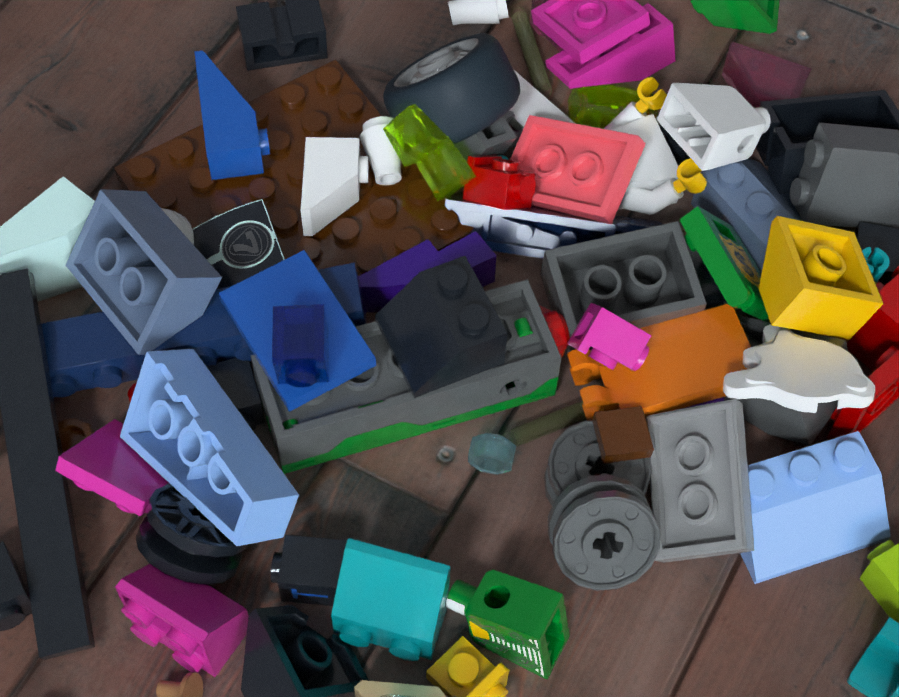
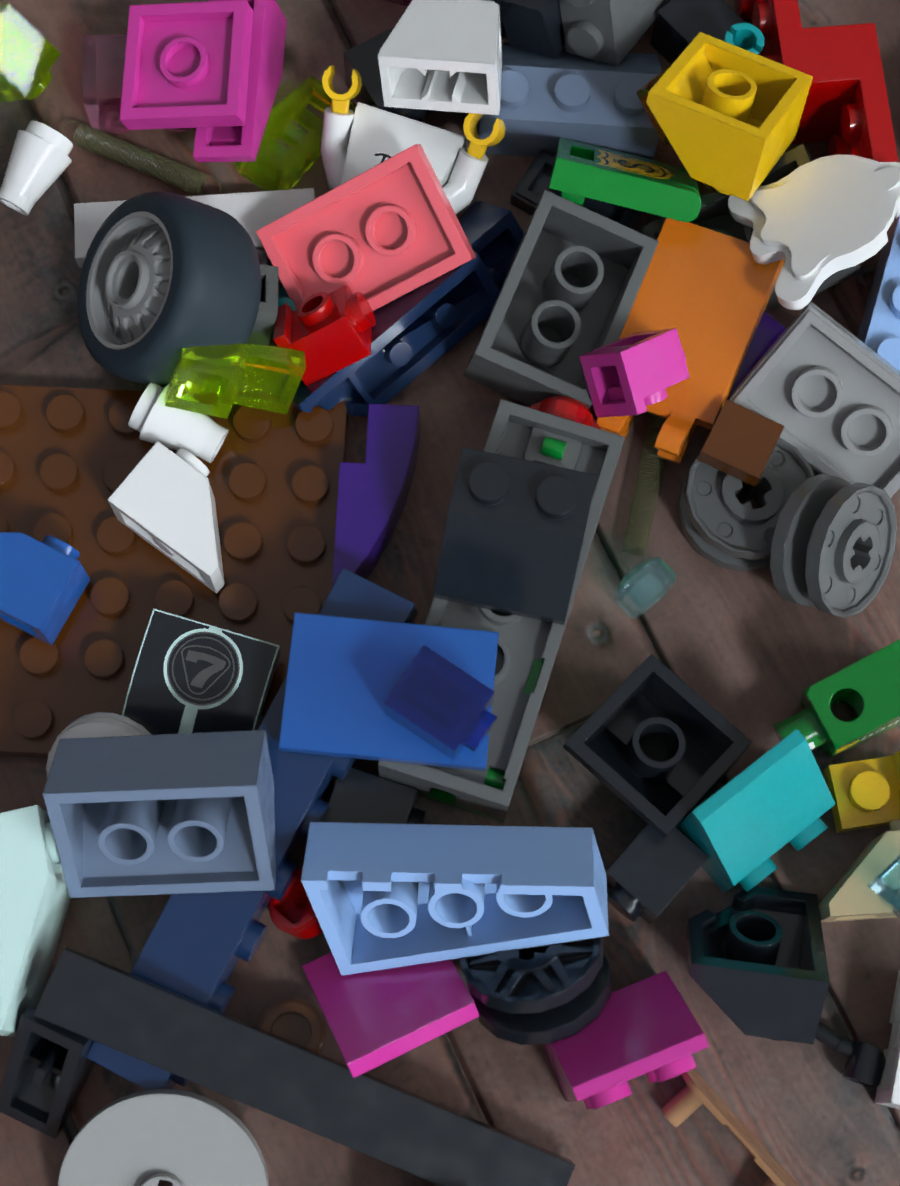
camera: 55 degrees left, 15 degrees up
(384, 503) = (658, 746): none -> black slope

